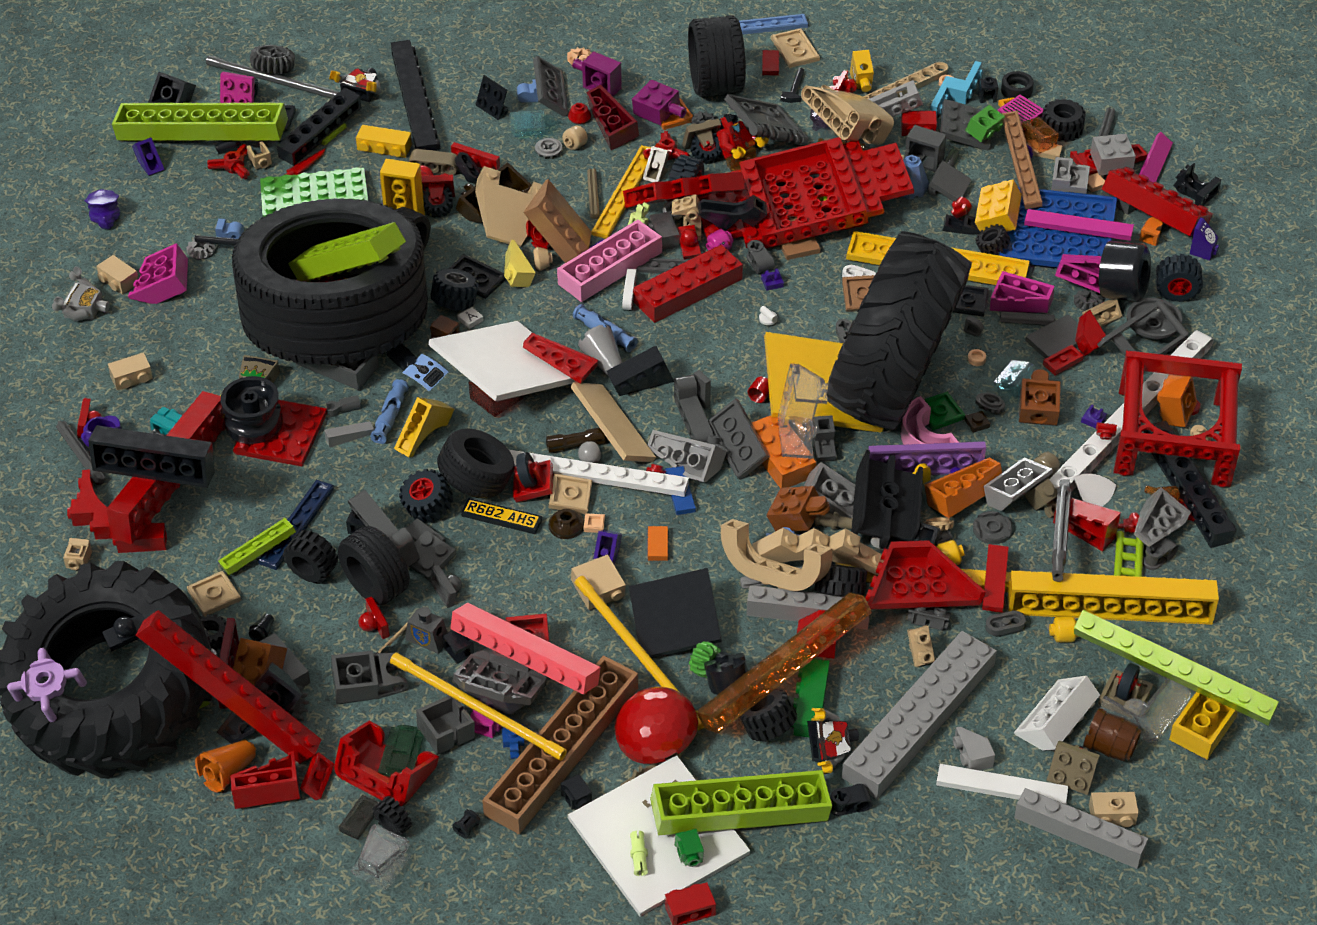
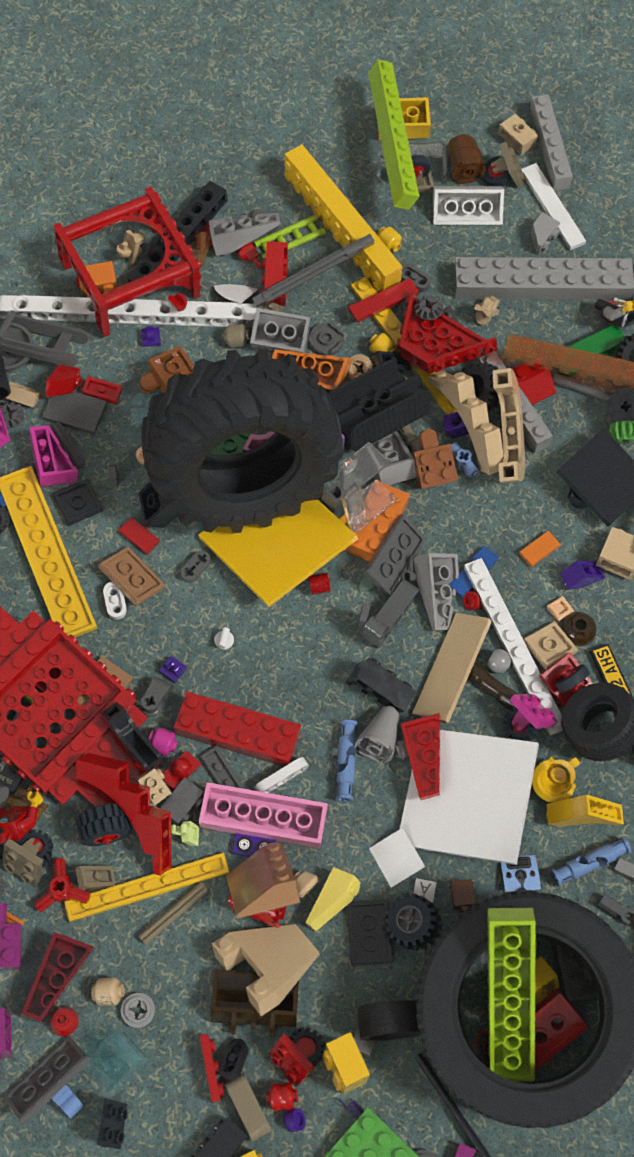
camera: 130 degrees left, 20 degrees up
(466, 418) = (555, 779): none -> yellow helmet
(508, 315) = (397, 857): none -> white sticker
(527, 433) = (527, 717): none -> dark pink plate
(946, 593) = (424, 312): none -> dark grey gear

